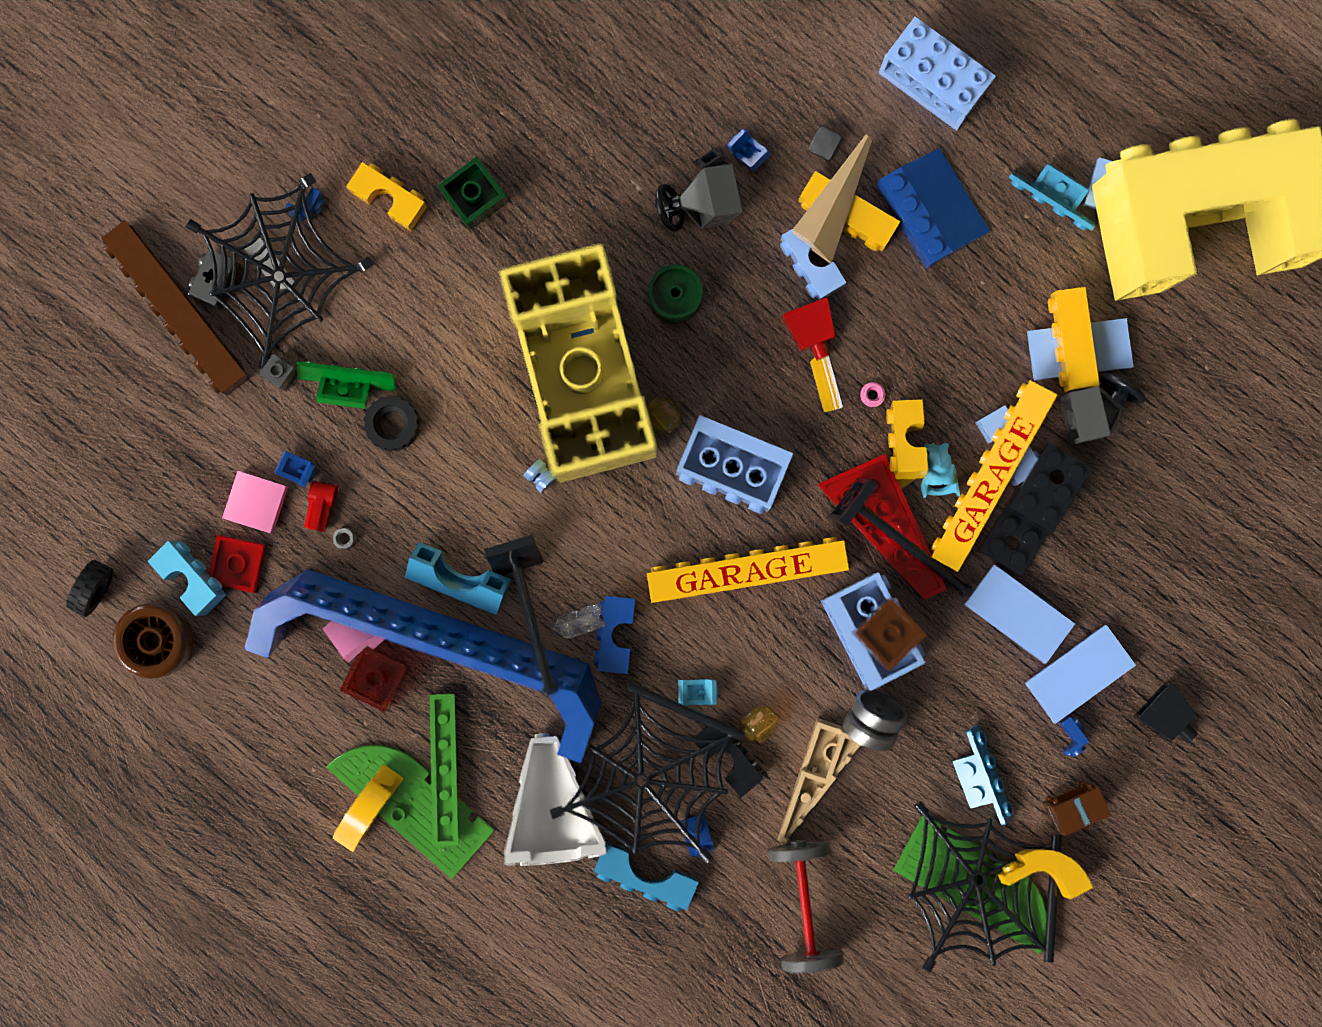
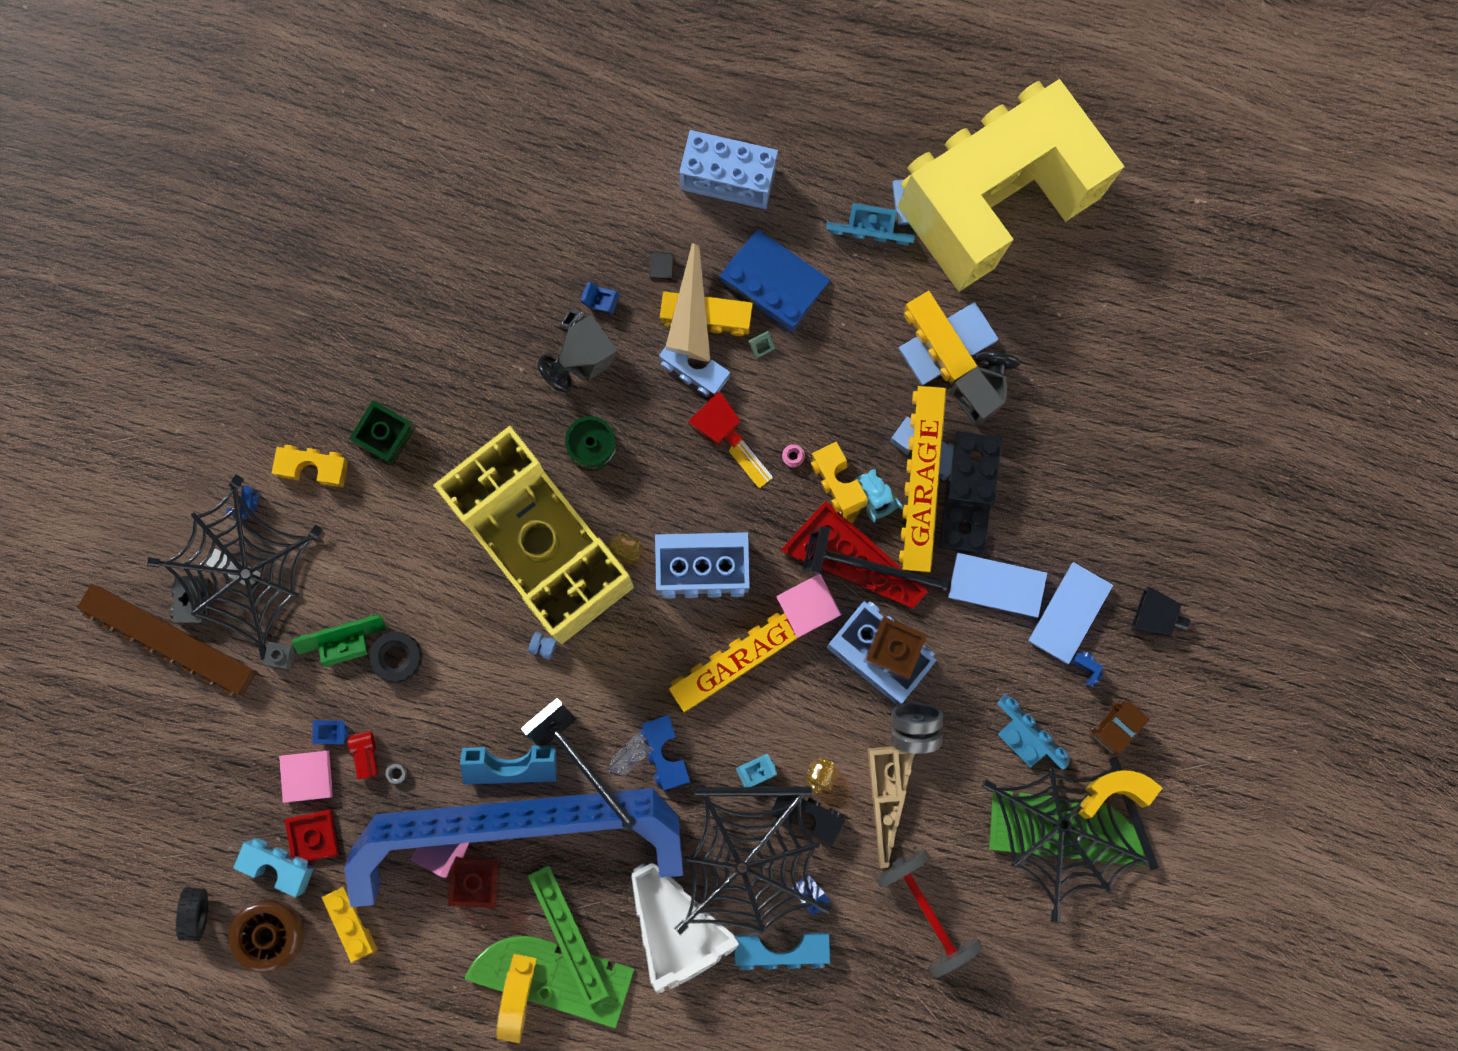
camera: 30 degrees left, 5 degrees down
(236, 675) = (352, 933): none -> yellow arch
(821, 552) = (808, 605): none -> bright pink slope
(890, 268) = (761, 344): none -> sand green slope

